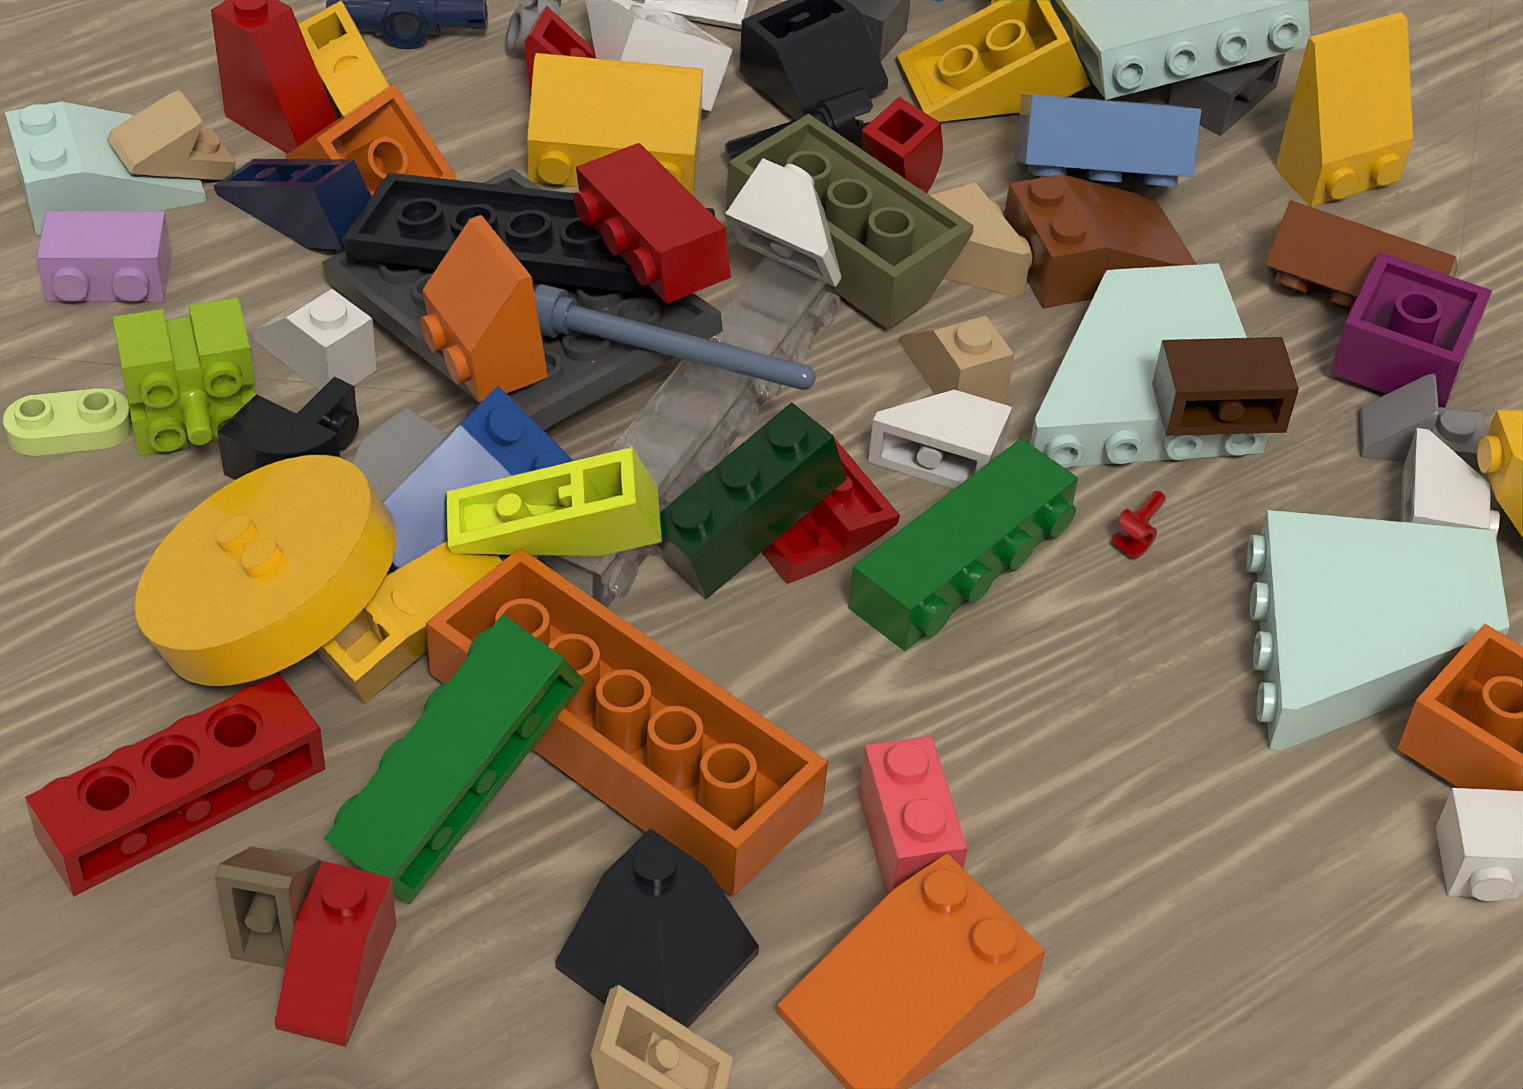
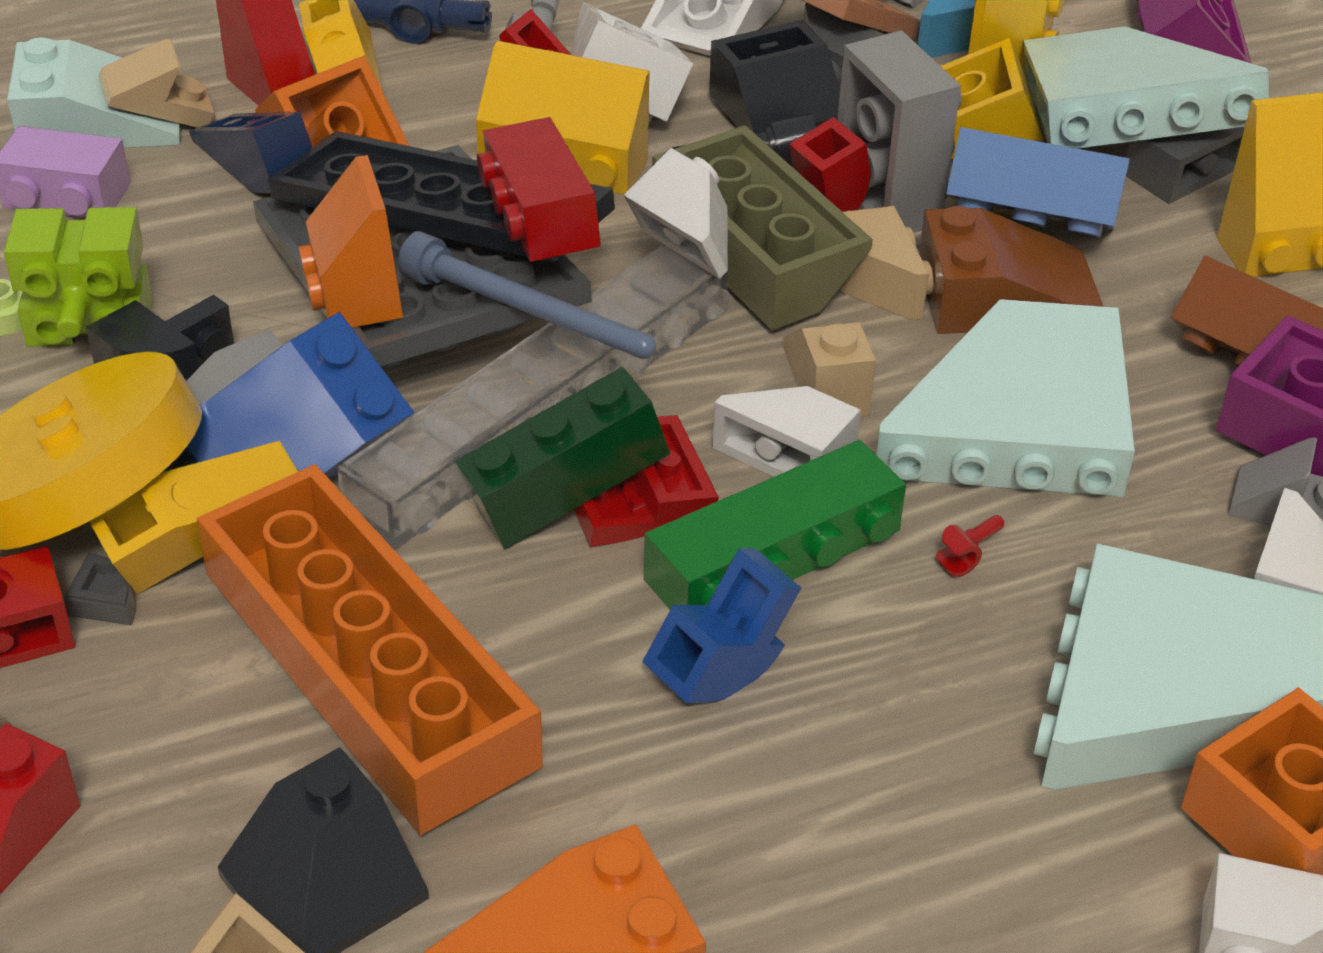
camera: 15 degrees right, 5 degrees down
(322, 339) = (228, 264): white slope -> none
(335, 707) = (100, 593): none -> dark grey tile
(455, 757) = (171, 650): green brick -> none
(559, 510) = (367, 434): neon yellow slope -> none
(908, 808) = (623, 771): coral brick -> none
(962, 653) = (730, 642): none -> blue brick
(972, 85) = (907, 118): none -> light grey brick
(1224, 386) = (1081, 416): reddish brown brick -> none

